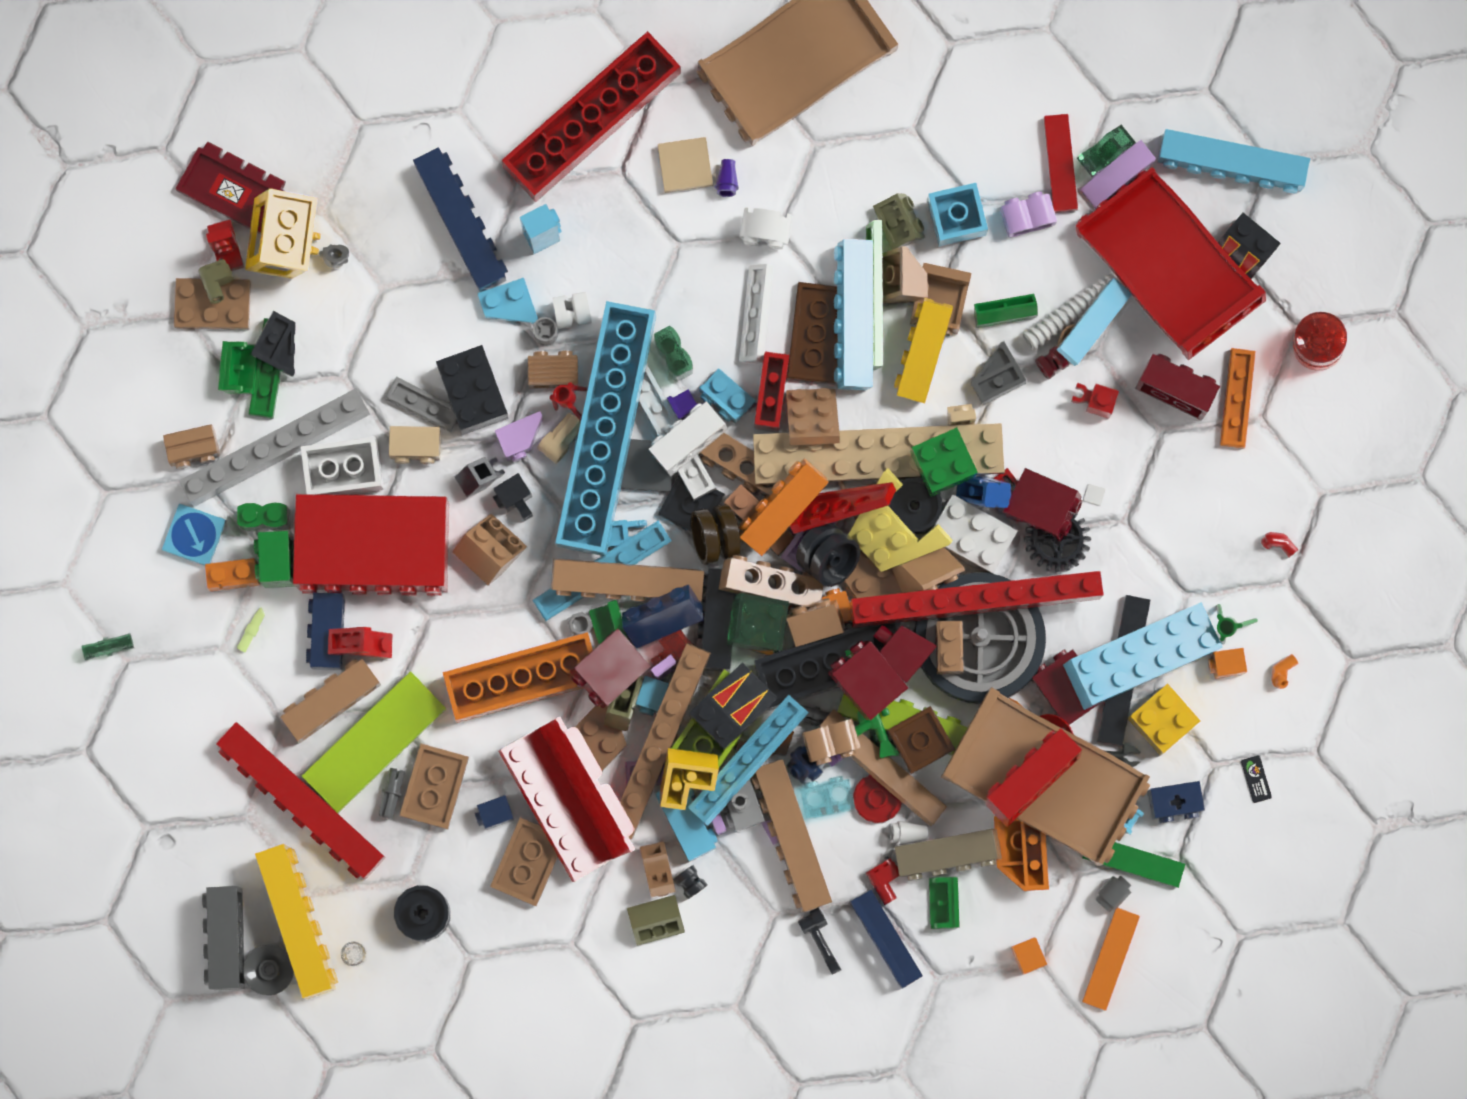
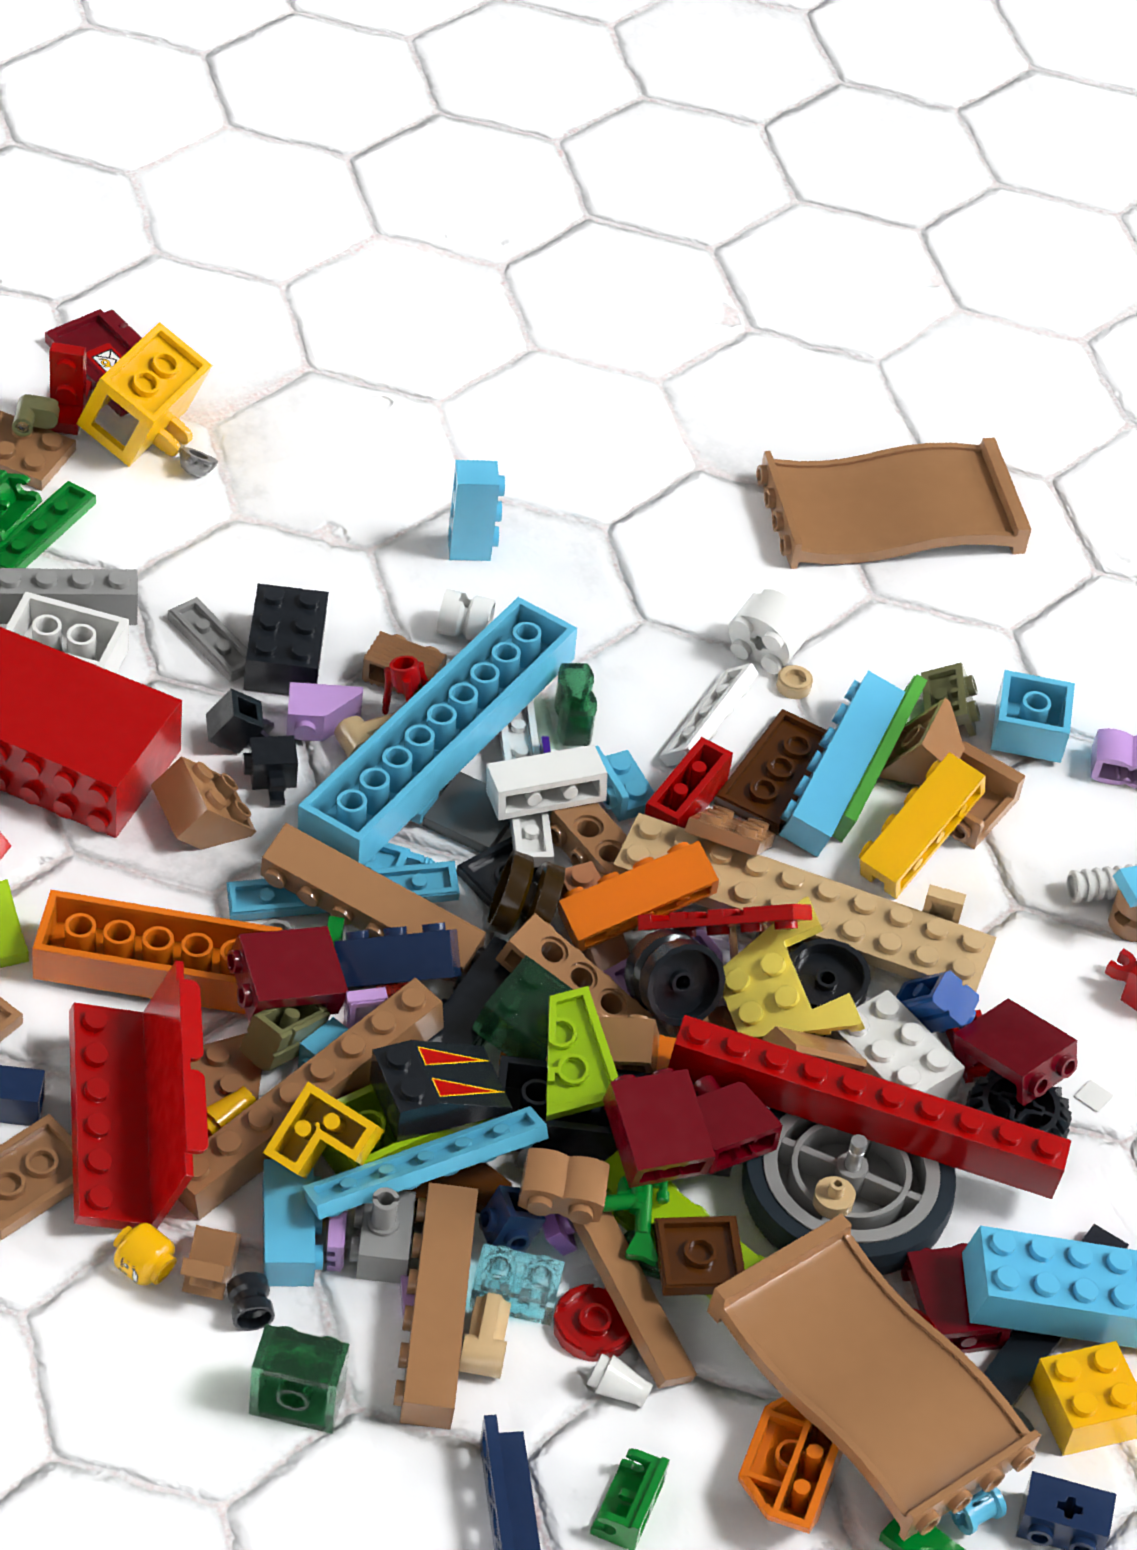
camera: 20 degrees right, 35 degrees down
(276, 343) = (66, 500): black wing -> none
(414, 443) = (176, 664): tan brick -> none
(459, 219) = (376, 487): dark blue brick -> none
(508, 302) = (387, 586): medium azure wing -> none
(545, 326) = (419, 622): light grey wheel -> none
(591, 116) = (609, 450): red brick -> none
(616, 768) = (228, 1108): none -> yellow cone
(619, 880) = (144, 1254): none -> yellow head
(655, 920) = (168, 1330): olive brick -> none
(685, 164) = (694, 549): tan tile -> none
(727, 179) = (740, 579): dark purple cone -> none
(742, 923) = (298, 1378): none -> clear green brick
(796, 251) = (794, 682): none -> tan tile
(802, 651) = (576, 1055): none -> lime wing
(812, 924) = (407, 1440): black brick -> none
(827, 846) = (485, 1345): none -> tan piece
(880, 878) = (551, 1424): red piece -> none
(943, 462) = (894, 929): green brick -> none
(948, 853) = (670, 1421): dark tan brick -> none
(949, 647) = (799, 1149): medium nougat brick -> none
(977, 671) = (833, 1196): none -> tan tile
(998, 376) = (1011, 907): dark grey wing -> none
(1005, 310) = (1053, 843): green piece -> none
(1033, 777) = (856, 1338): red brick -> none
(1051, 363) = (1095, 919): dark red wheel -> none

